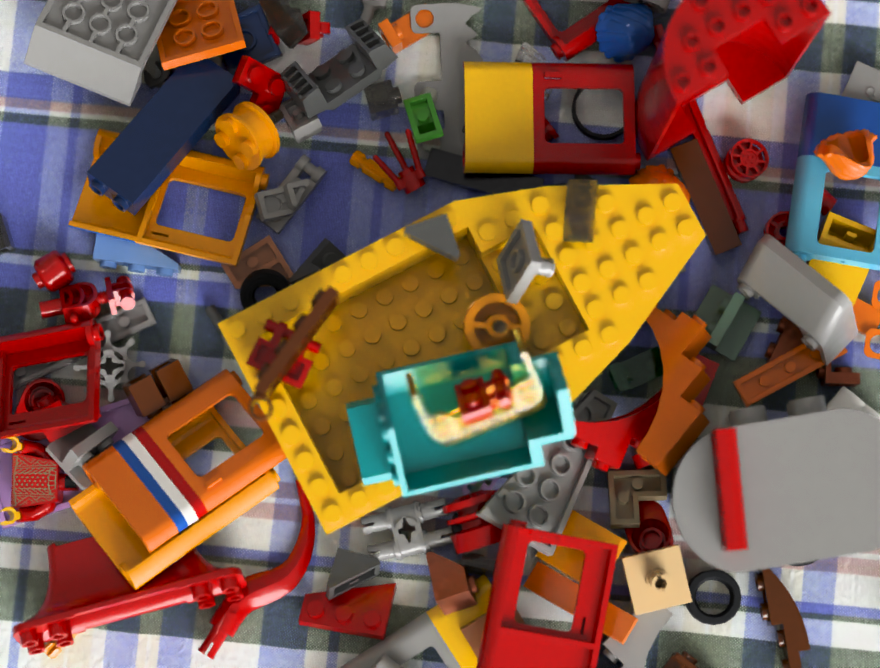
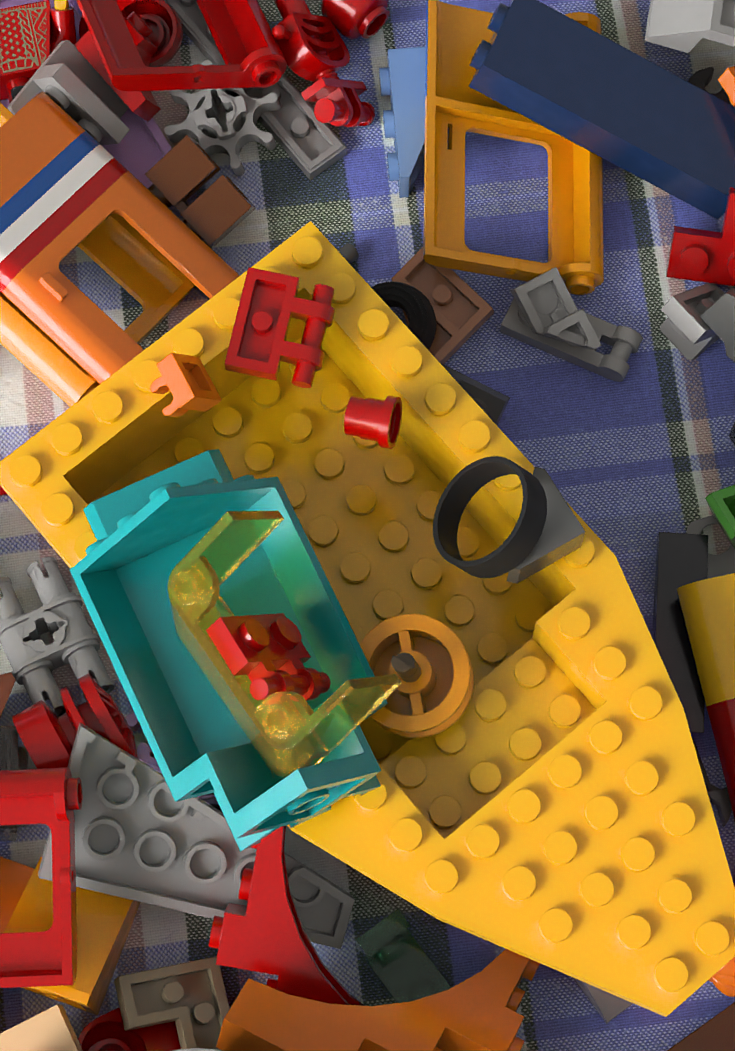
camera: 75 degrees right, 10 degrees down
(248, 135) = (648, 232): light orange wheel -> none
(290, 350) = (278, 320): reddish brown hinge -> none
(306, 411) = (188, 384): none -> orange tile
(351, 313) = (374, 419): none -> red piece
(371, 169) = (644, 456): light orange axle -> none
(409, 177) = (651, 513): red plant -> none
(414, 285) = (519, 542): none -> black tyre
(521, 261) = (532, 684): light grey tile -> none
(580, 210) = (652, 767): clear smoke slope -> none

